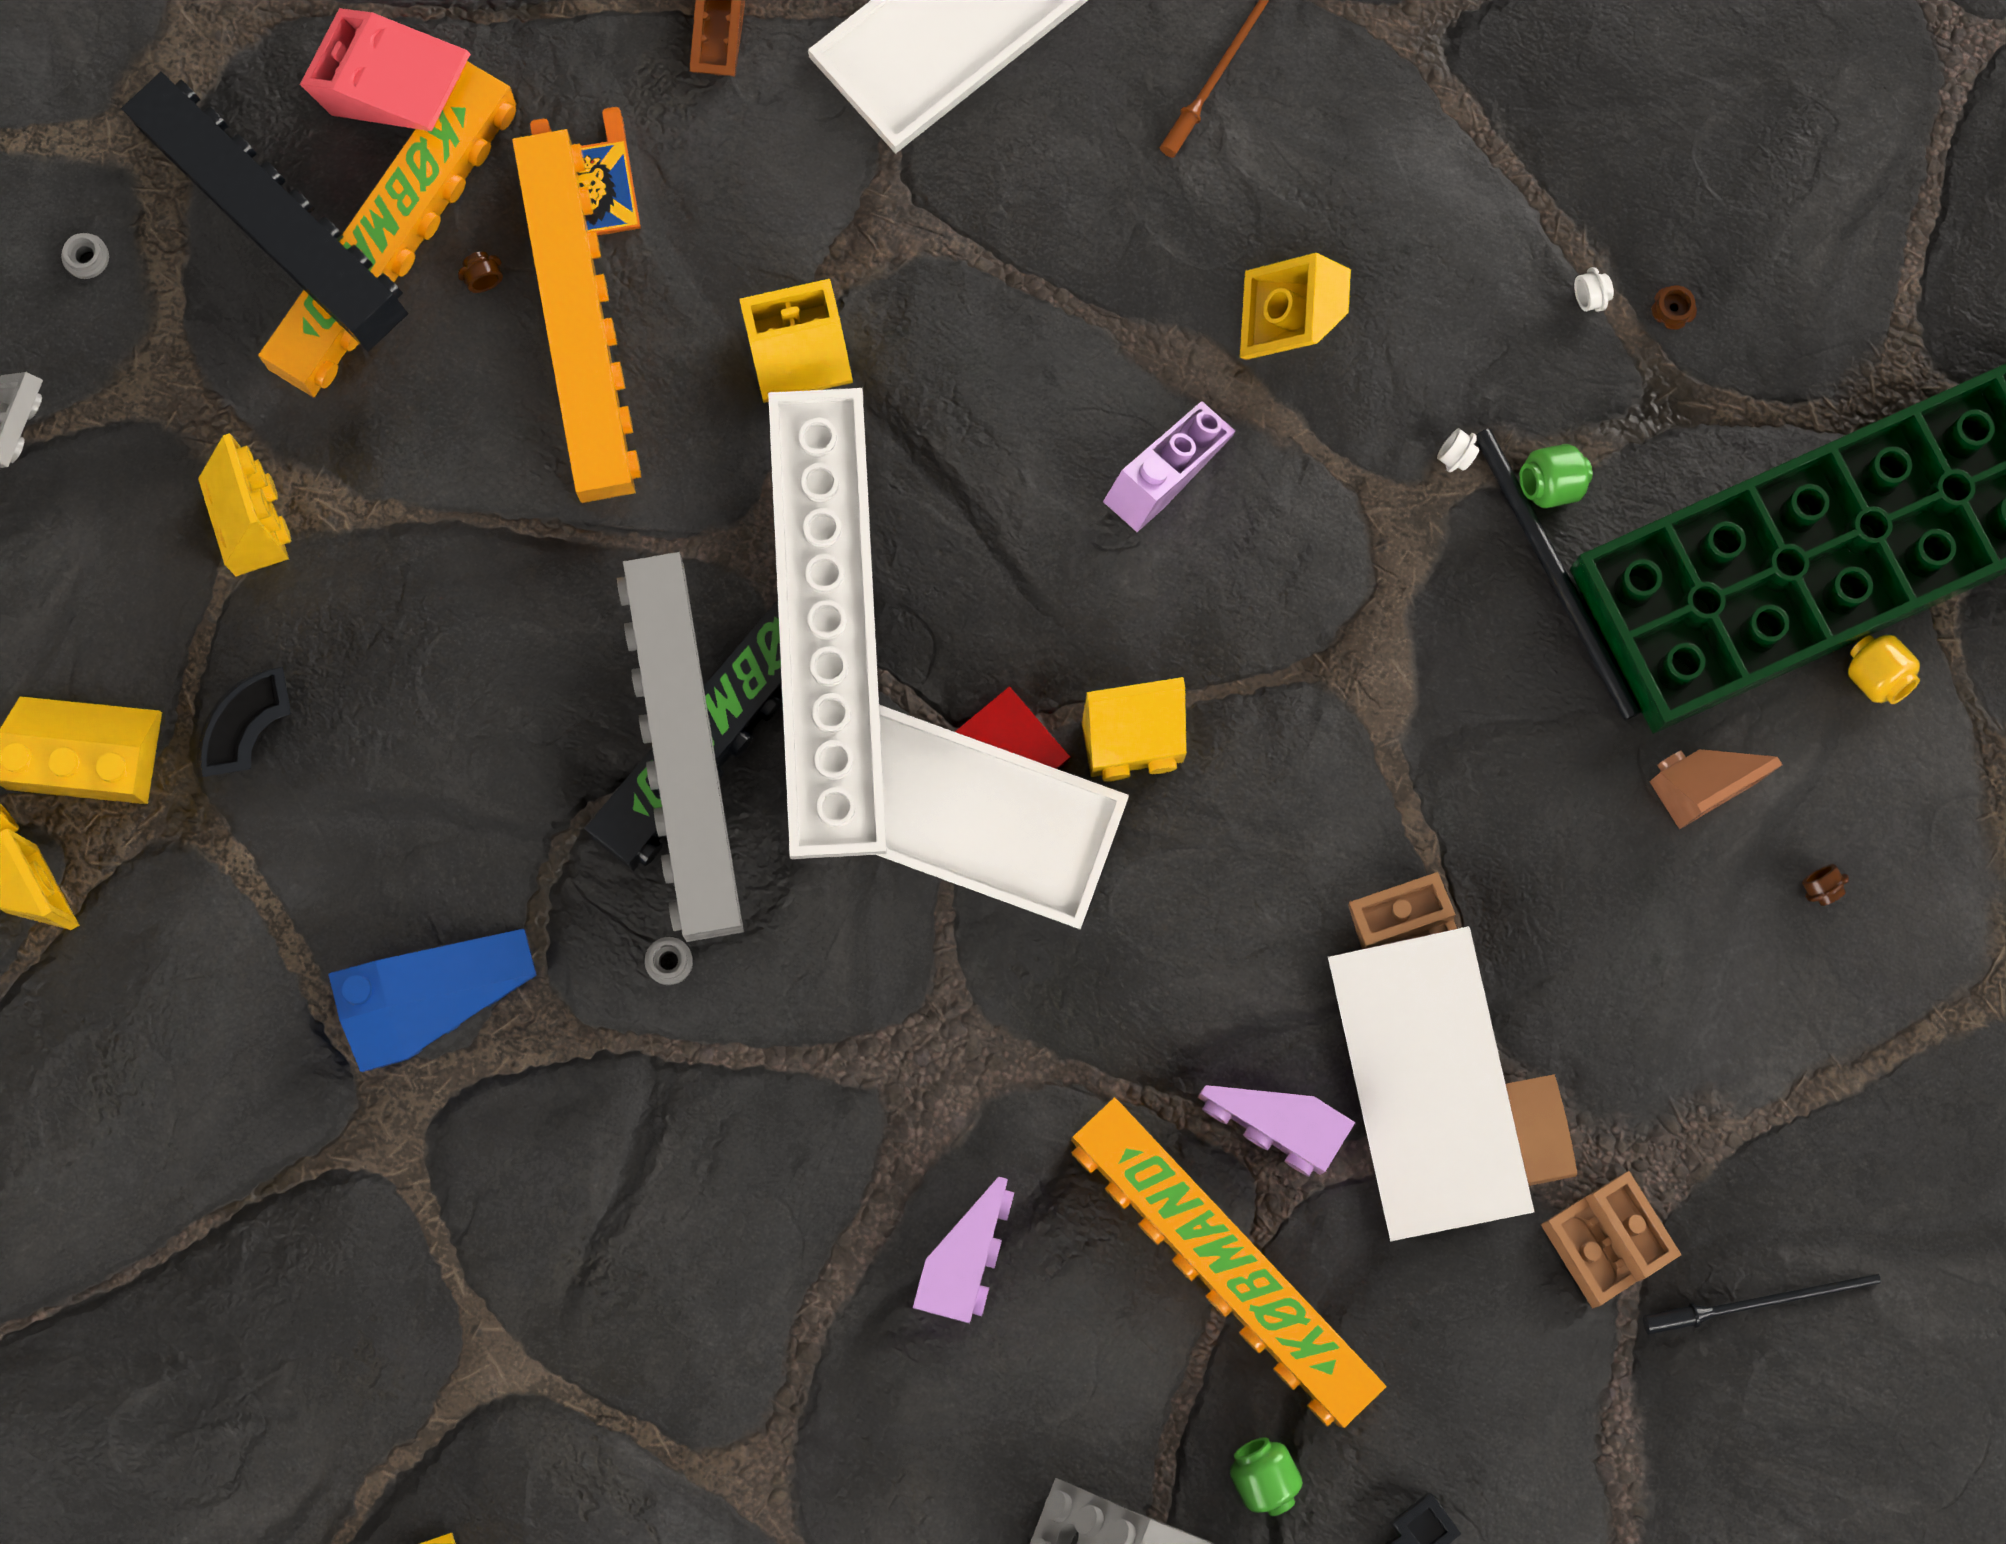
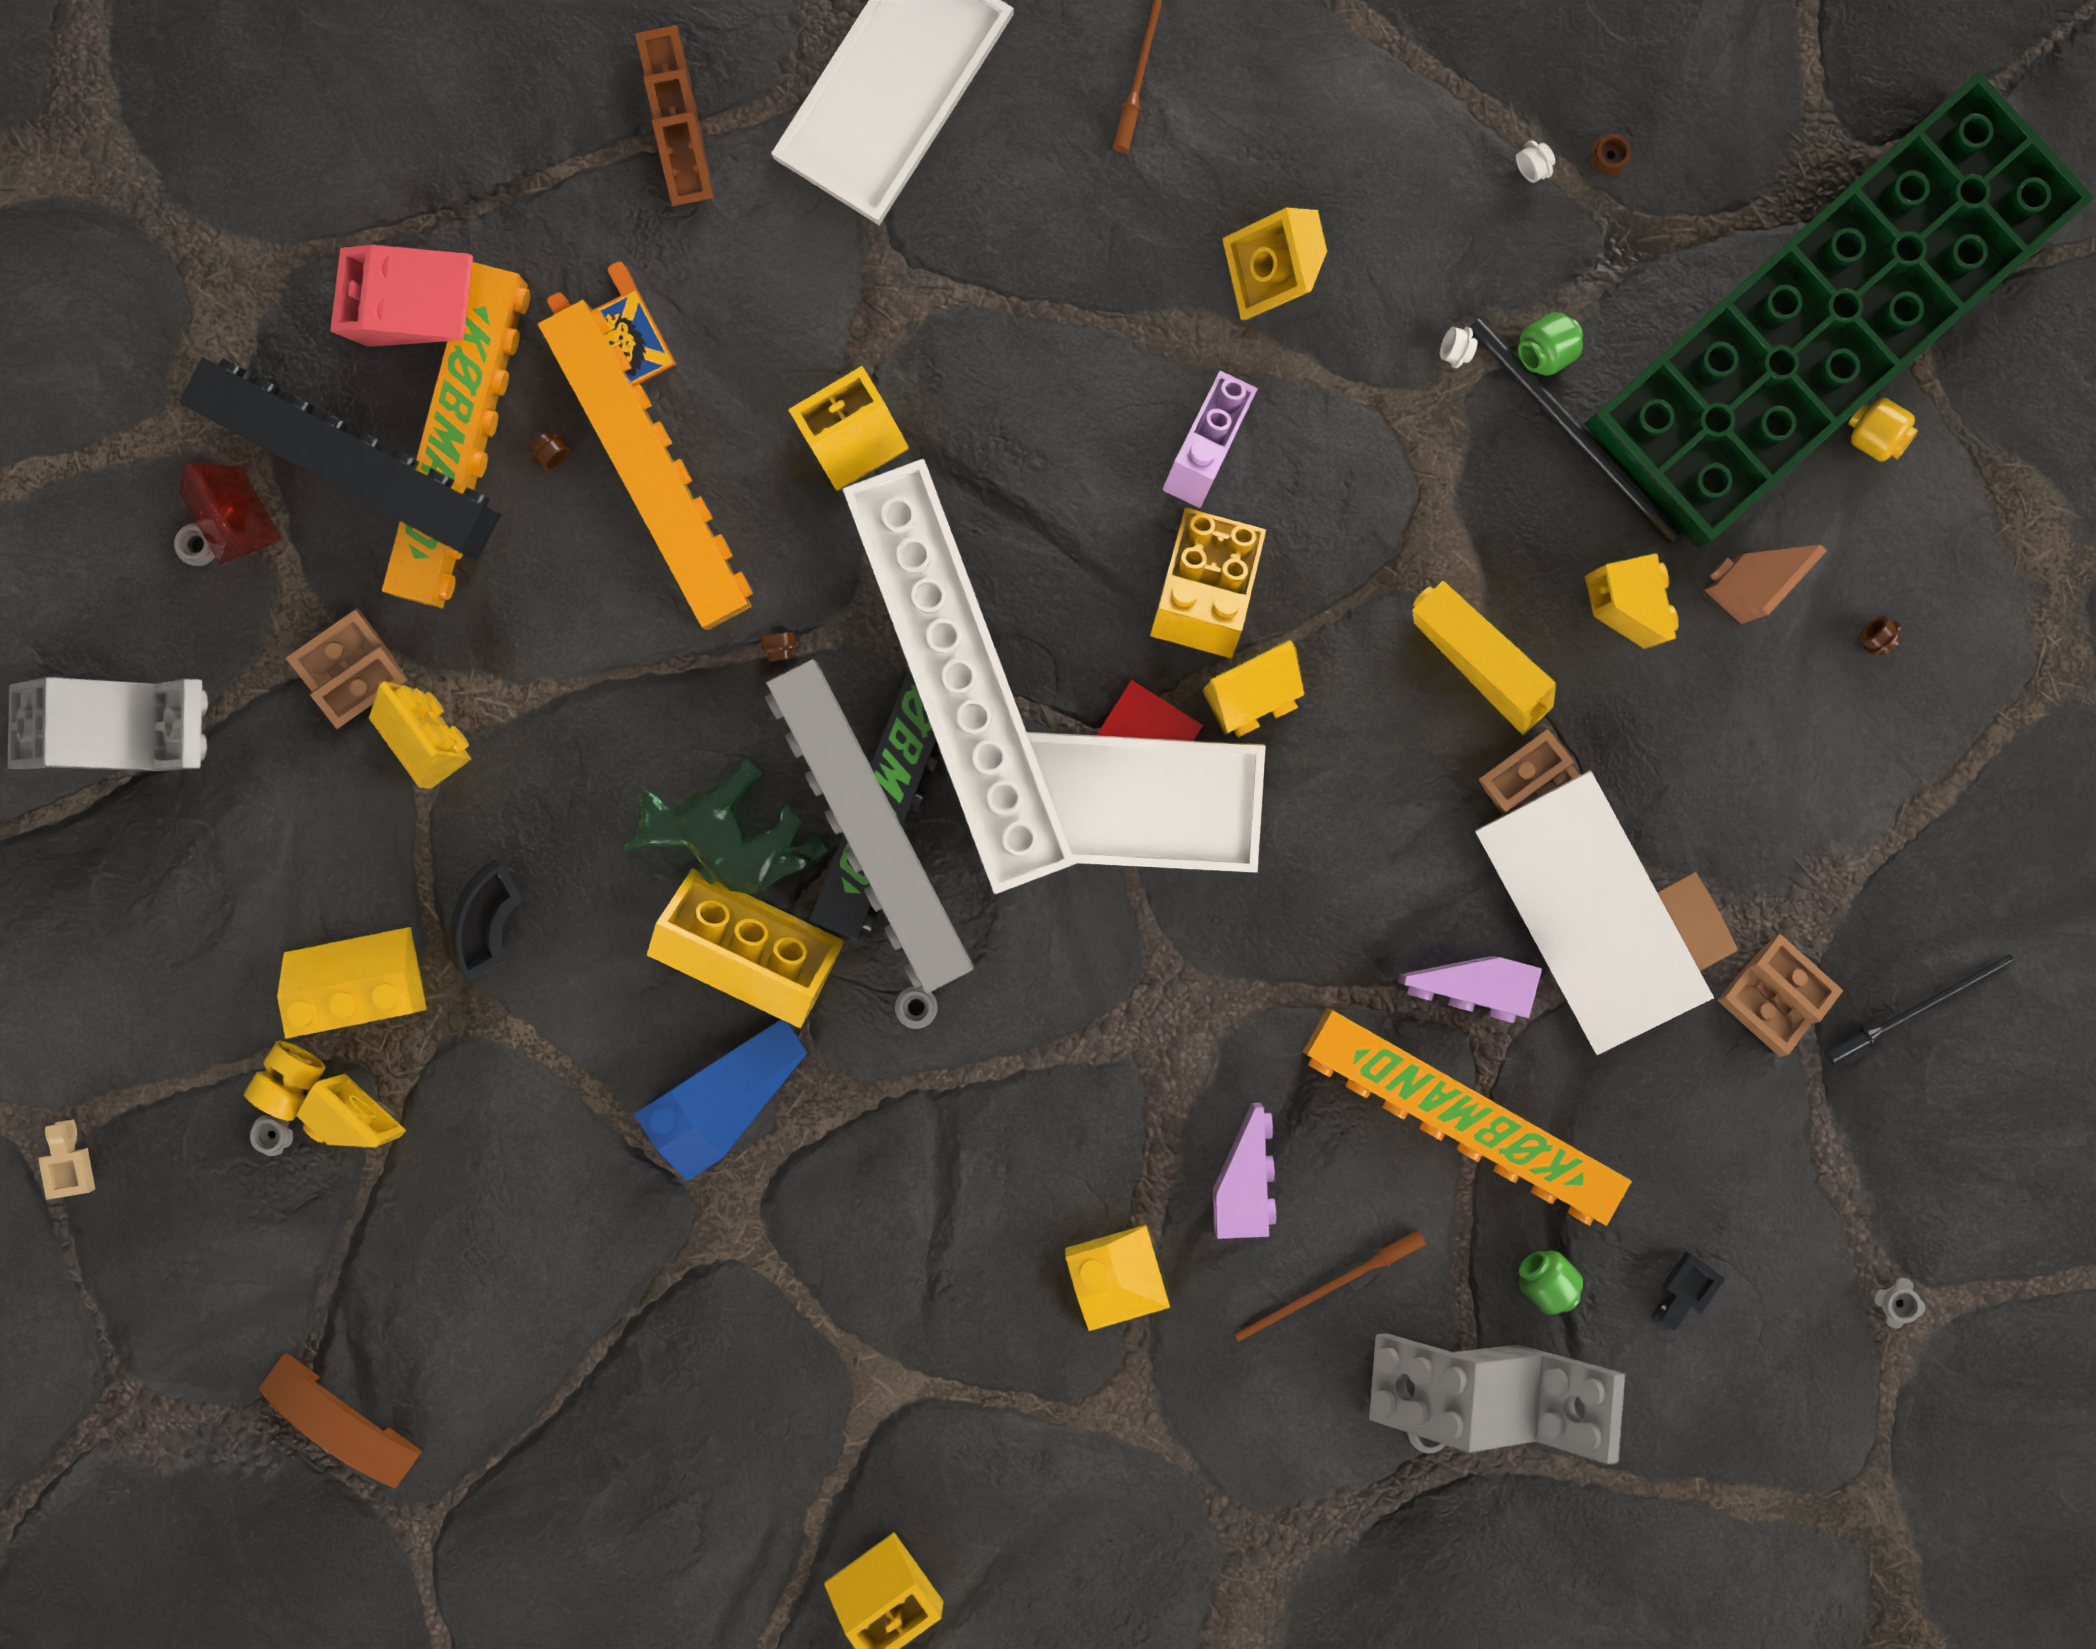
camera: 15 degrees left, 10 degrees up
(129, 229) = (227, 510): none -> clear red slope
(188, 422) = (345, 667): none -> medium nougat slope
(507, 839) = (745, 948): none -> yellow slope
(517, 715) = (717, 838): none -> clear green animal
(649, 539) = (778, 646): none -> reddish brown plate
(789, 1324) = (1116, 1278): none -> yellow slope
(1088, 1394) = (1382, 1258): none -> dark orange piece
(1120, 611) = (1208, 583): none -> yellow slope
(1392, 776) = (1485, 656): none -> yellow slope
(1563, 760) = (1634, 600): none -> yellow slope

